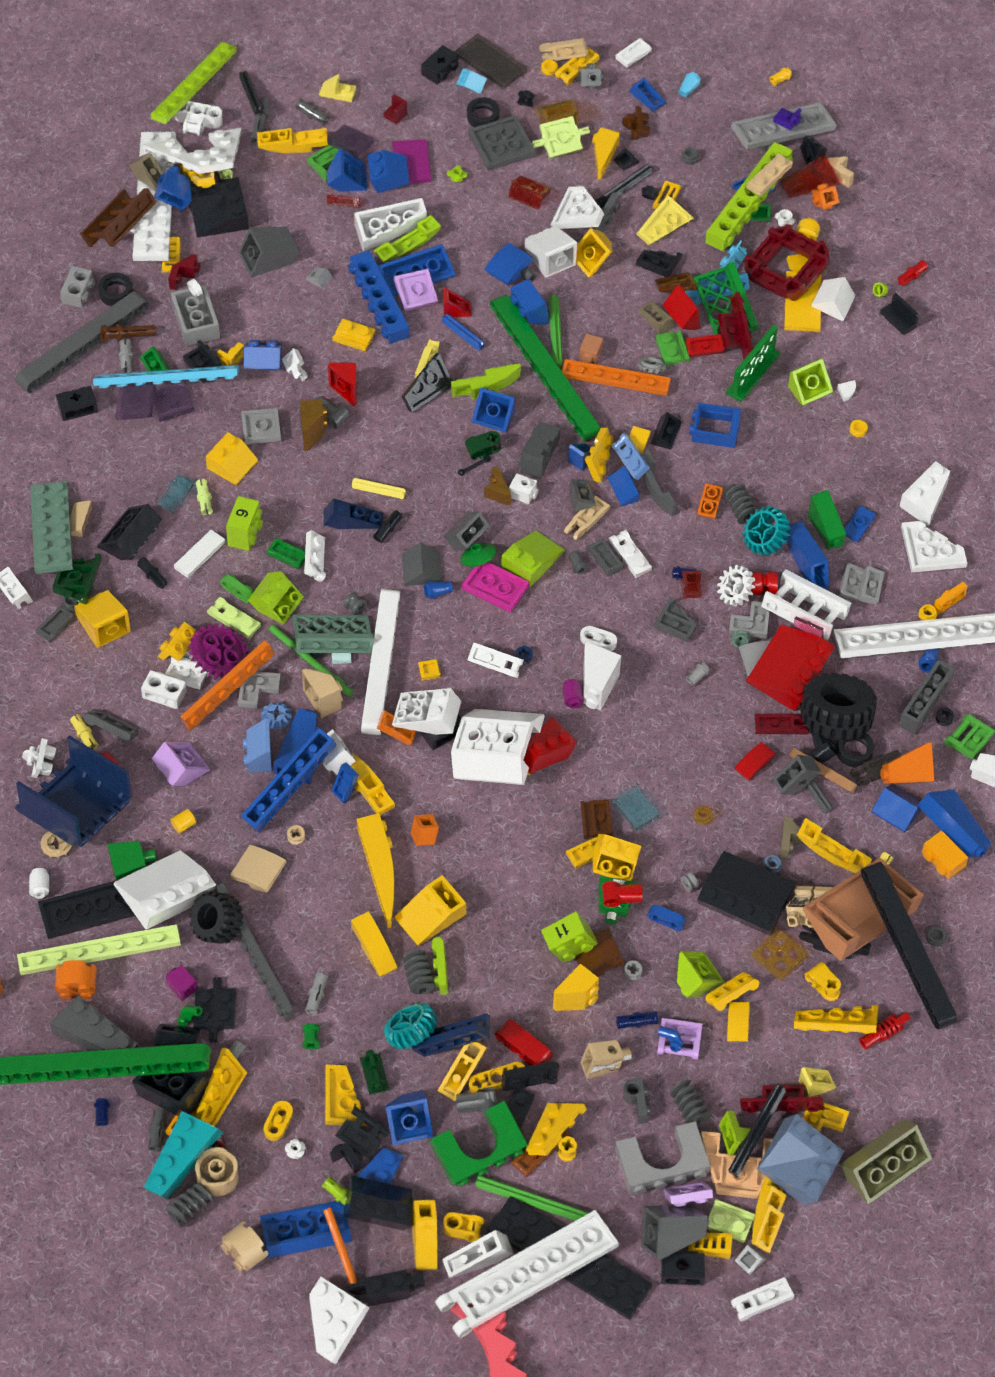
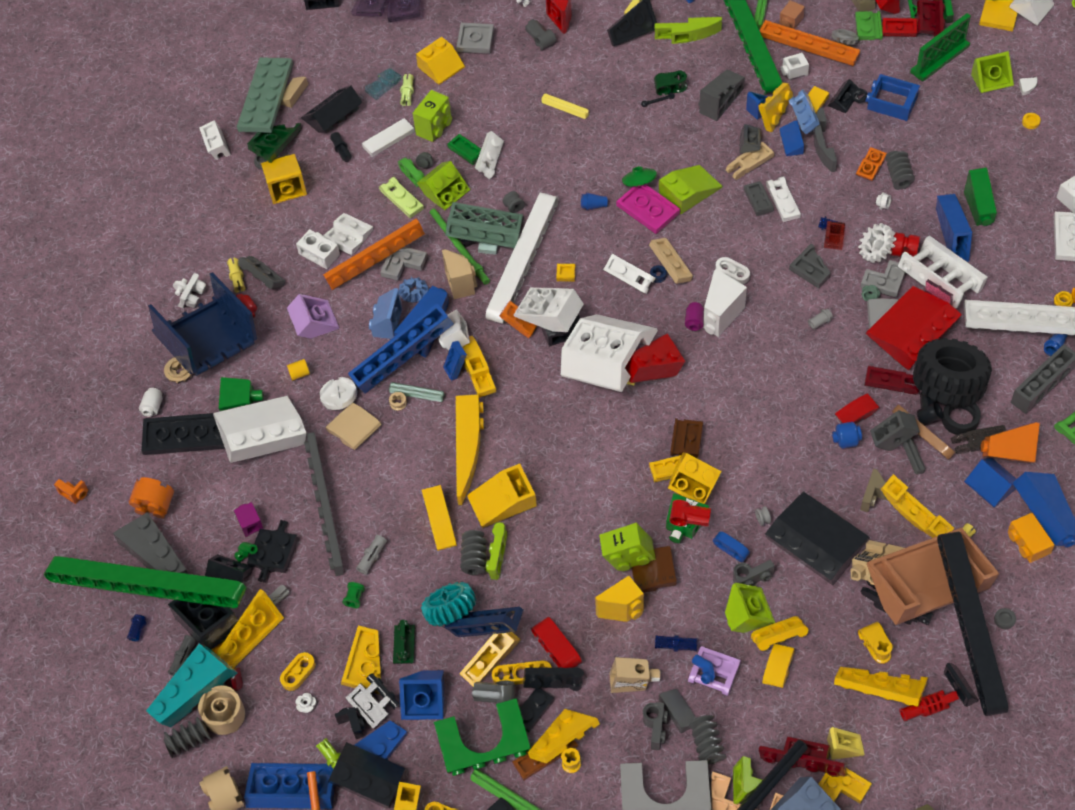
camera: 20 degrees right, 0 degrees up
(55, 624) = (243, 177): dark grey tile -> none
(99, 949) = (186, 473): yellowish green plate -> none
(178, 643) = (343, 210): yellow bracket -> none
(204, 916) = (296, 463): black tyre -> none
(217, 645) = (360, 220): magenta gear -> none
(232, 838) = (338, 393): none -> white tile
(247, 573) = (424, 160): none -> dark grey plate
(312, 422) = (519, 40): pearl gold slope -> none
(312, 821) = (417, 392): none -> sand green axle
(351, 516) = (531, 125): dark blue slope -> none
(387, 526) = (563, 139): black axle -> none
(421, 565) = (584, 177): dark grey slope -> none
(424, 830) = (517, 418): orange brick -> none
(466, 530) = (633, 154): dark grey brick -> none
(494, 409) = (688, 53): blue slope -> none
(498, 489) = (672, 123): pearl gold slope -> none
(523, 489) = (696, 126): white brick -> none
(534, 638) = (671, 260): none -> tan plate
(580, 566) = (731, 201): dark grey pin -> none
(608, 406) = (795, 66): none -> white brick
(627, 973) = (685, 599): light grey bush -> none
(636, 808) = (728, 435): clear light blue plate -> none
(655, 1082) = (677, 709): none -> dark grey slope
(679, 425) = (858, 92): none -> black hinge
(694, 941) = (753, 575): none -> dark grey plate
(703, 810) = (793, 448): clear yellow plate -> none
(731, 539) = (883, 201): none -> white plate
(751, 787) = (847, 435): none -> blue head
(768, 964) = (844, 614): clear yellow piece -> none
(770, 535) = (921, 201): teal gear -> none
(772, 859) = (853, 510): sand blue plate -> none
(859, 523) = (1012, 206): blue plate -> none
(861, 584) = (1002, 262): light grey slope -> none
(908, 1005) = (960, 684): none -> black slope
(943, 722) = (1063, 397): black bush -> none

